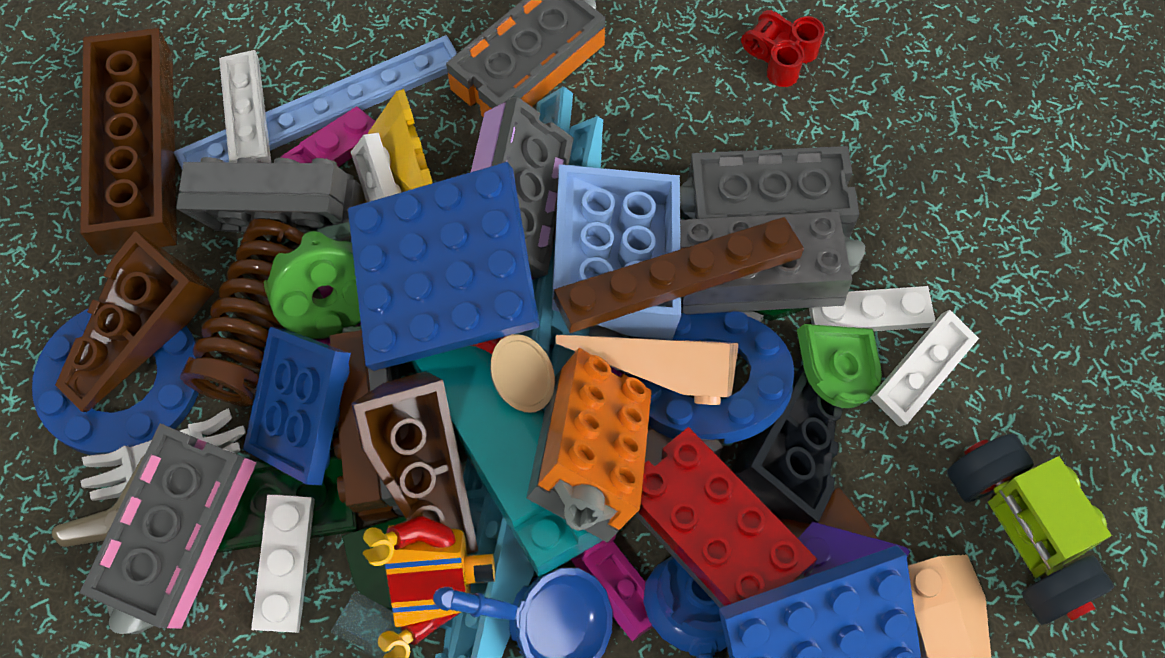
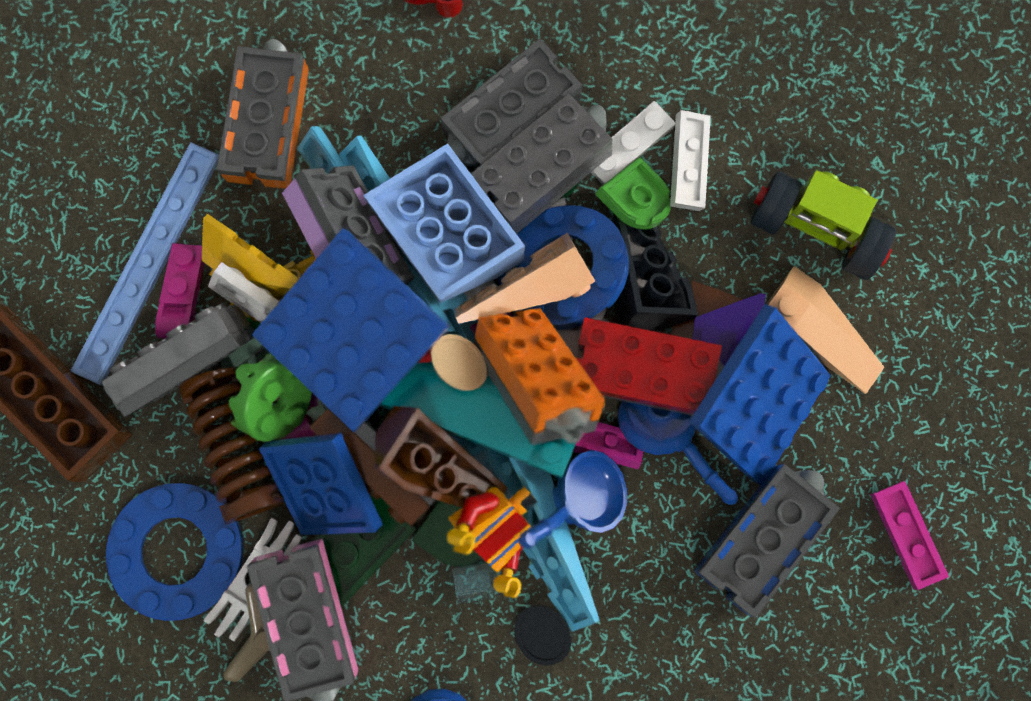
camera: 35 degrees left, 15 degrees up
(138, 311) = (155, 506): reddish brown wedge -> none
(244, 107) = (95, 305): white tile -> none
(283, 563) = (389, 584): white plate -> none
(676, 274) = (503, 219): reddish brown plate -> none

